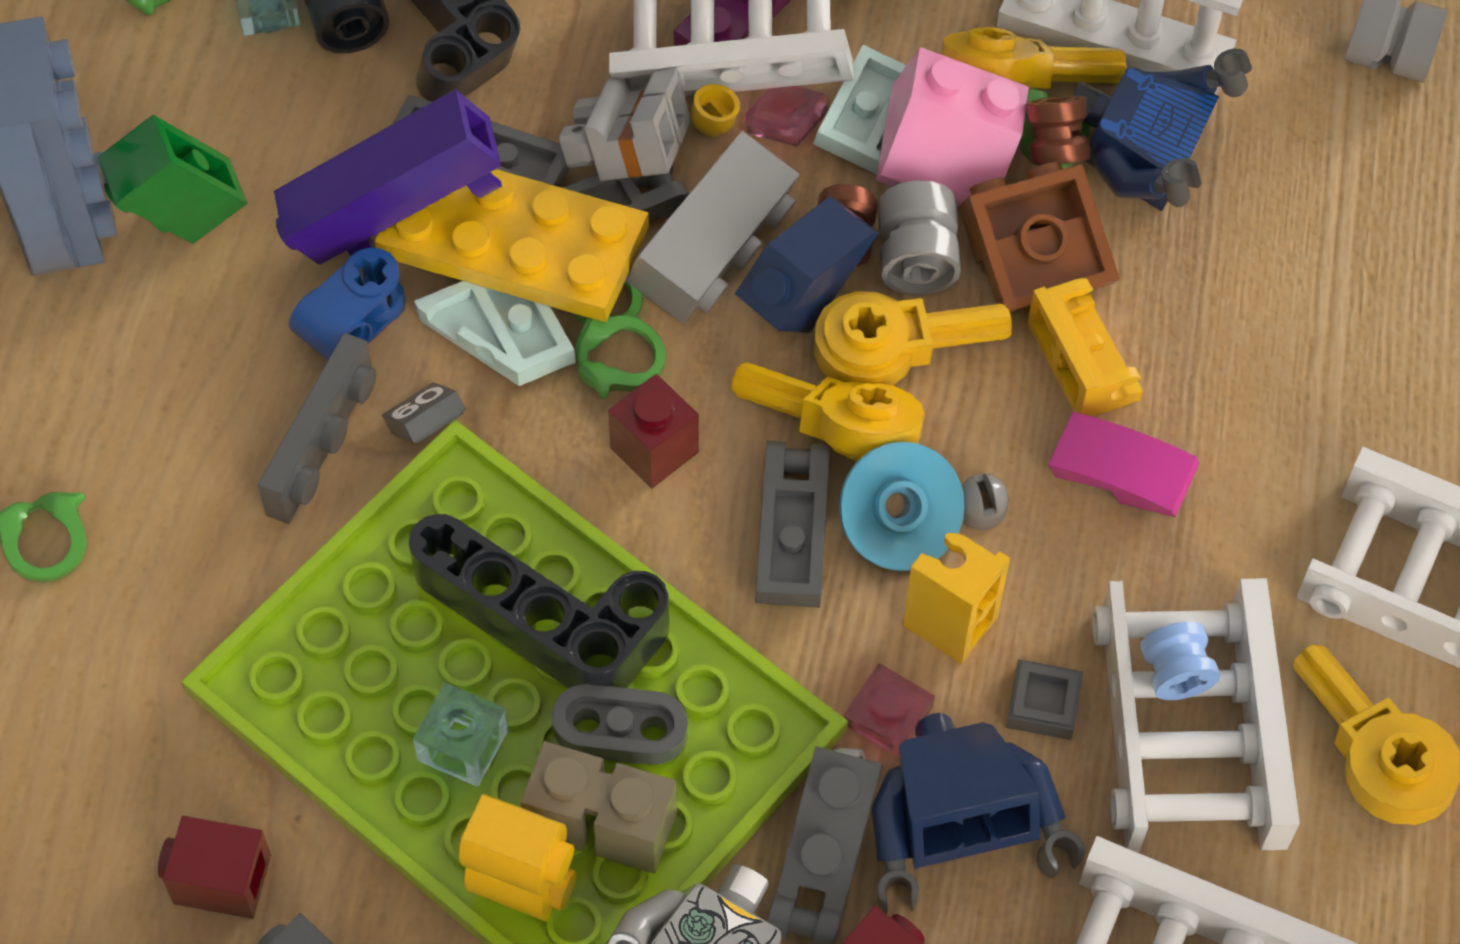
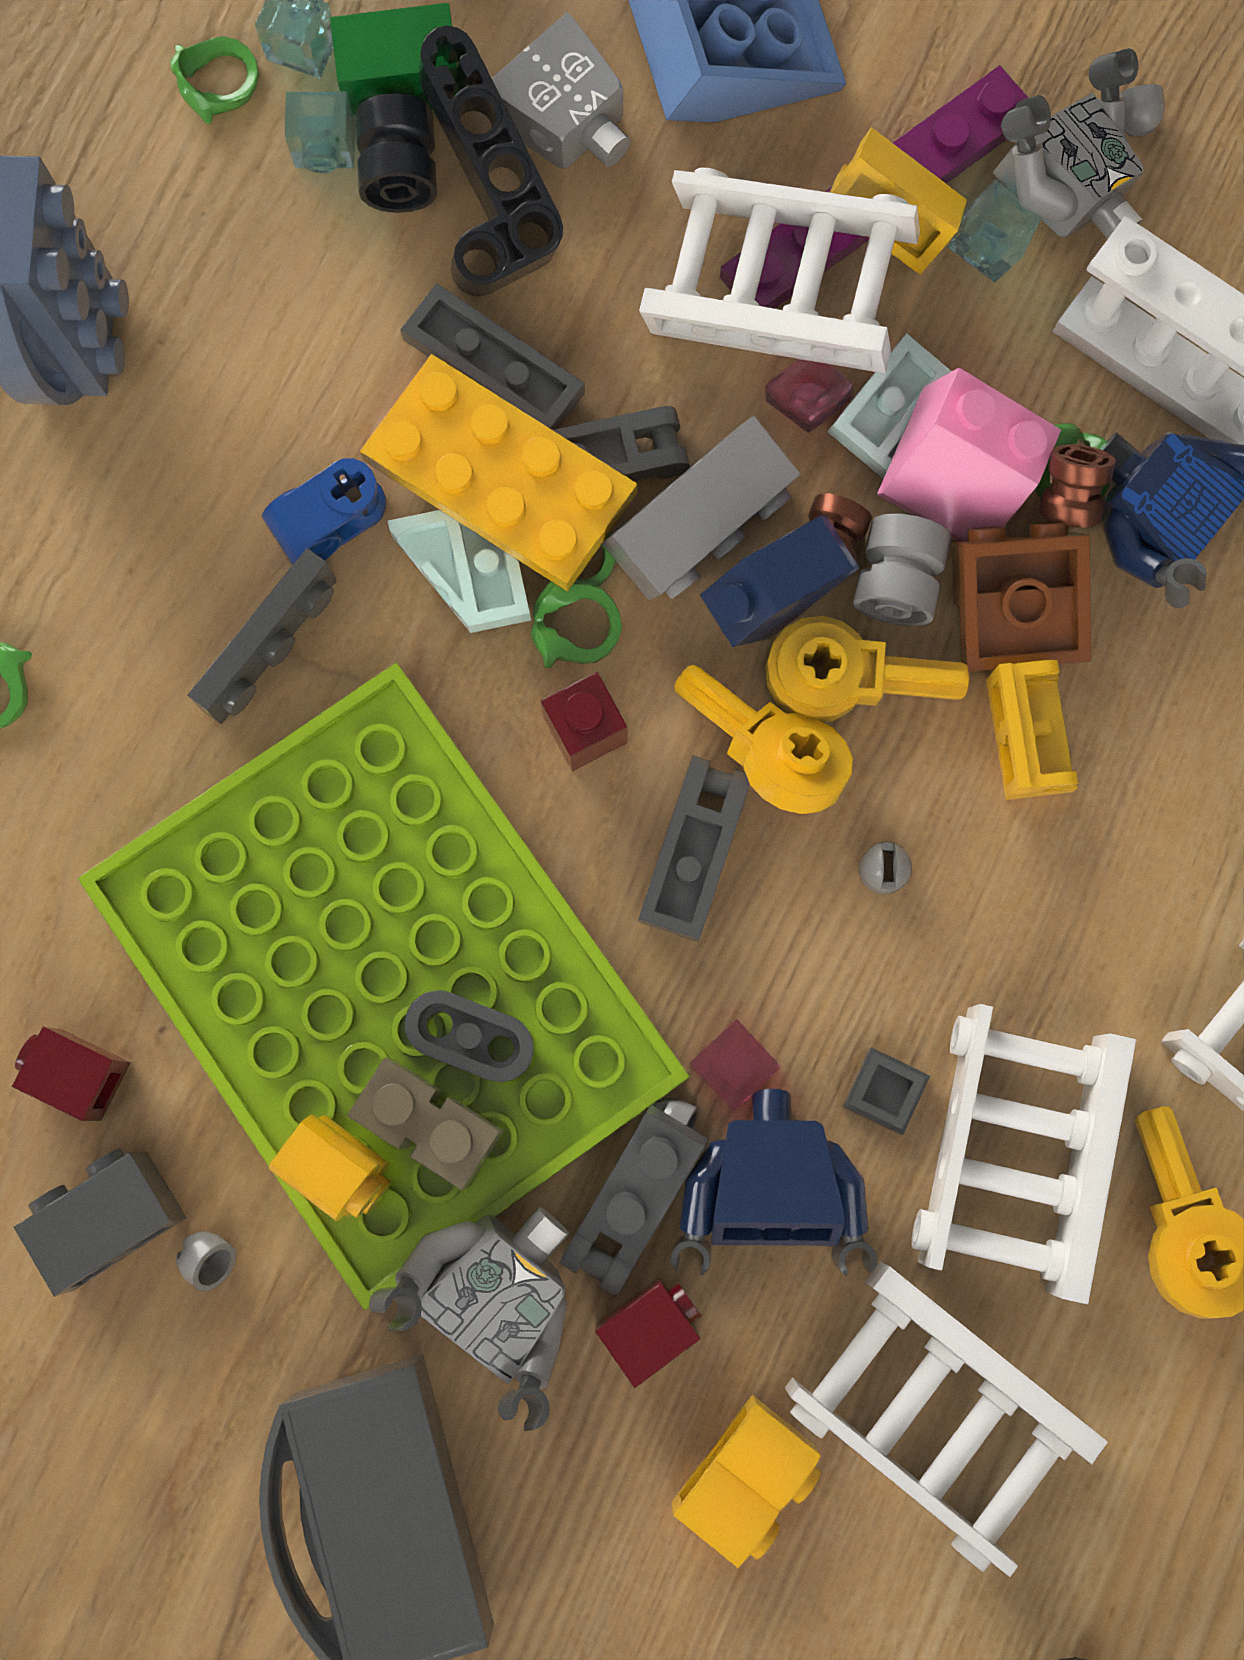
camera: 15 degrees right, 20 degrees up
(171, 180) = (174, 335): green brick -> none
(388, 178) = (383, 394): dark purple brick -> none
(424, 412) = (369, 645): dark grey tile -> none
(466, 751) = (340, 1012): clear light blue plate -> none
(533, 598) = (414, 886): black beam -> none
(628, 130) = (644, 379): light grey hips -> none
(721, 109) = (747, 368): yellow hinge -> none
(930, 510) = (807, 886): medium azure dish -> none
(959, 604) = (828, 988): yellow hinge -> none
(1031, 60) = (1066, 389): yellow piece -> none
(1124, 461) = (1034, 868): dark pink slope -> none
(1180, 661) = (1023, 1110): light blue wheel -> none

